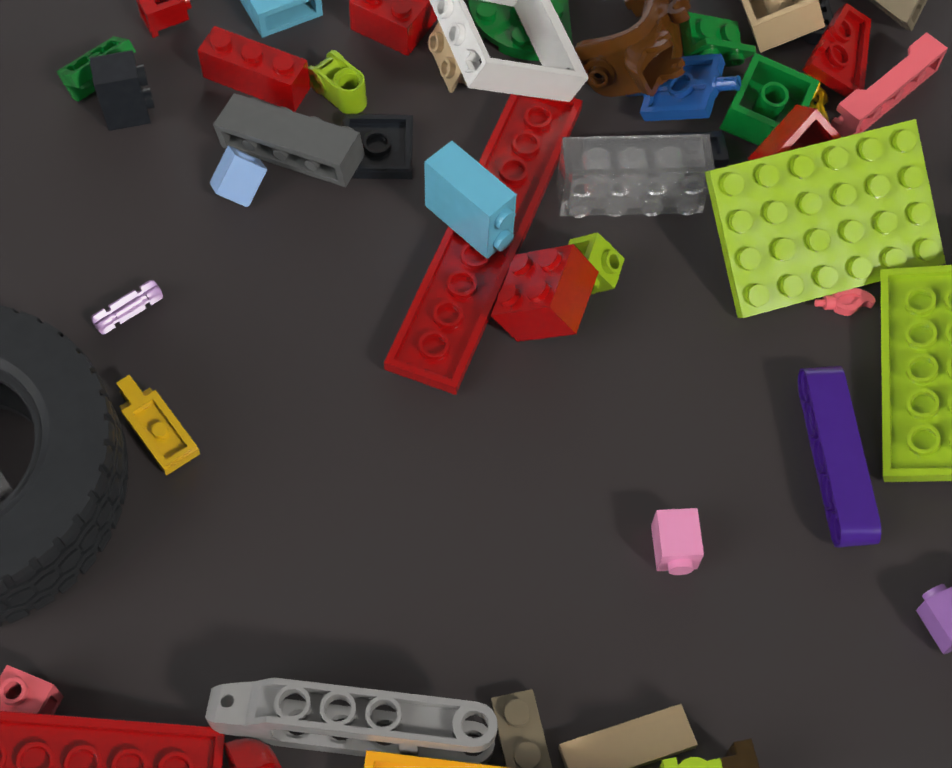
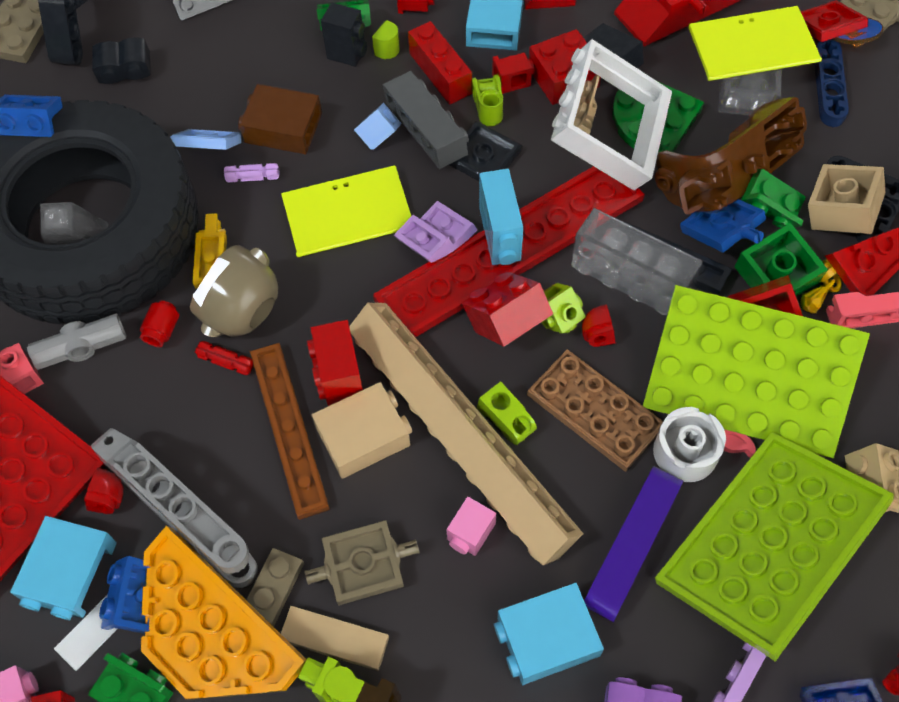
camera: 40 degrees right, 0 degrees up
(49, 294) = (206, 139): none -> light blue tile
(72, 620) = (76, 341): none -> light grey piece
(114, 227) = (280, 119): none -> reddish brown brick
(159, 539) = (159, 323): none -> red brick
(171, 74) = (386, 41): none -> lime brick
(238, 449) = (235, 293): none -> dark tan piece
(266, 531) = (224, 357): none -> red axle
(279, 294) = (339, 217): none -> neon yellow container
(345, 35) = (513, 71): none -> red brick
(398, 257) = (436, 232): none -> lavender slope
(403, 564) = (289, 432): none -> dark orange tile
(413, 458) = (334, 362): none -> red brick
(486, 513) = (362, 429): none -> tan brick
(592, 447) = (465, 434): none -> tan brick
(596, 649) = (362, 562): none -> dark tan plate
(621, 404) = (506, 413): none -> lime leg
(642, 260) = (598, 327): none -> red piece
(699, 348) = (596, 409): none -> medium nougat tile
(819, 326) = (689, 444): none -> white brick
(832, 596) = (548, 634): none -> medium azure brick

